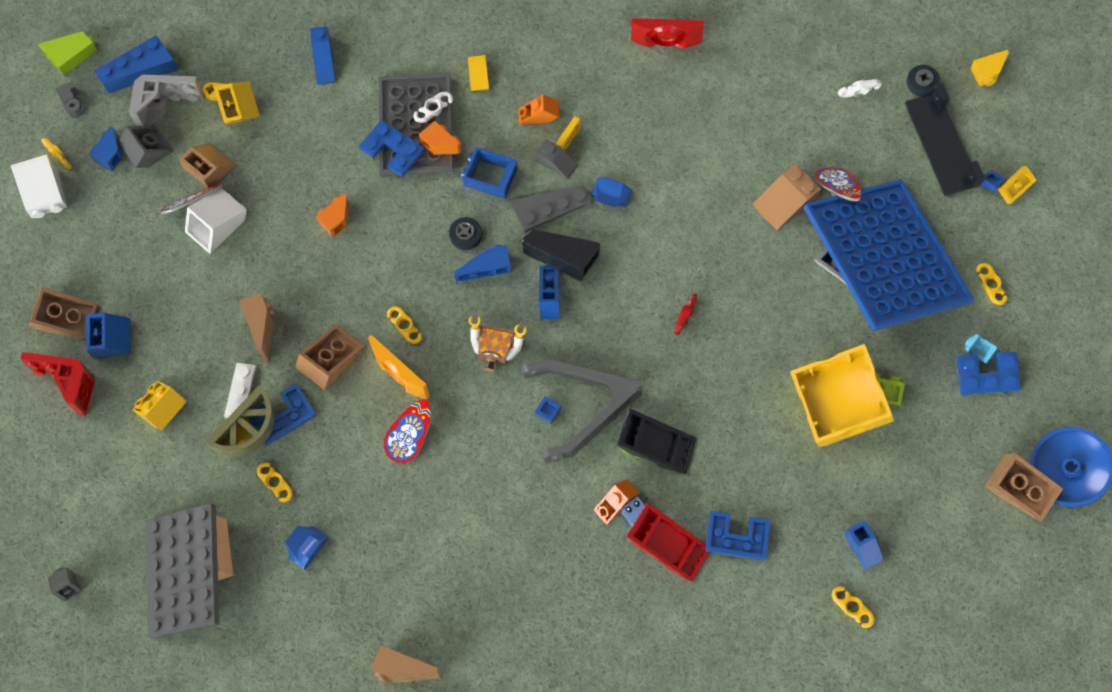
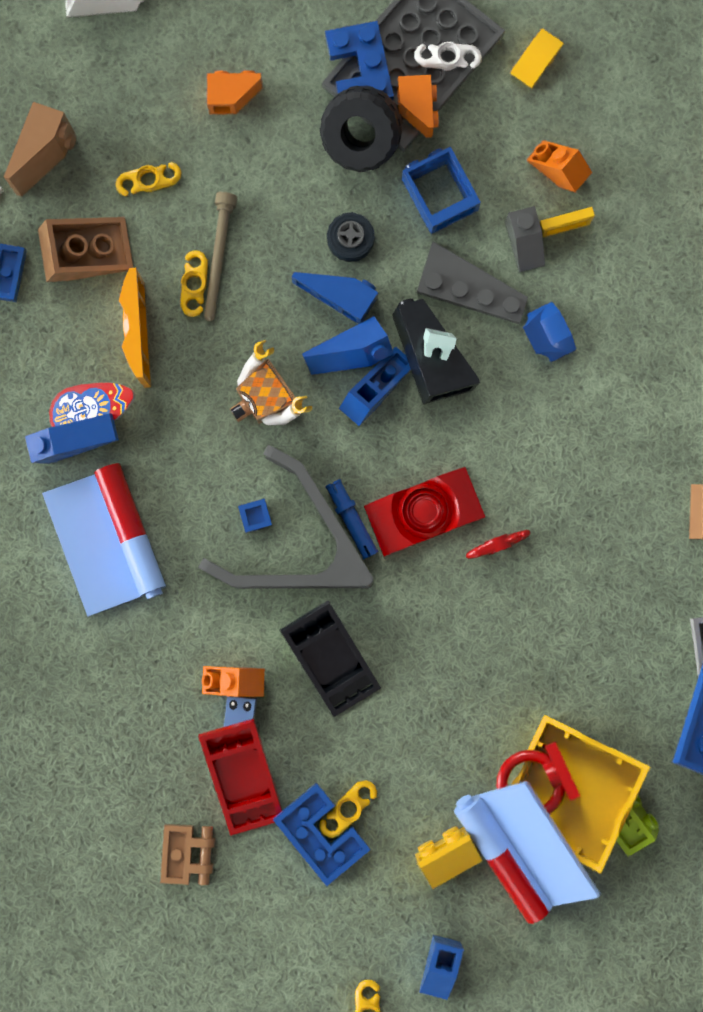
camera: 35 degrees right, 15 degrees up
(328, 302) = (136, 175): none -> yellow piece
(384, 271) = (225, 204): none -> dark tan piece
(414, 453) = (71, 439): none -> blue slope
(435, 187) = (376, 108): none -> black tyre
(480, 492) = (104, 540): none -> light blue door
(518, 286) = (352, 349): none -> blue slope
(558, 240) = (438, 339): none -> light aqua tile
(591, 363) = (351, 518): none -> blue pin
(632, 332) = (424, 511): none -> red slope
(673, 616) = (177, 854): none -> medium nougat plate
(734, 503) = (345, 822): none -> yellow piece
(813, 485) = (447, 857): none -> yellow slope
(825, 390) = (554, 767): none -> red tile
(846, 442) = (525, 850): none -> light blue door

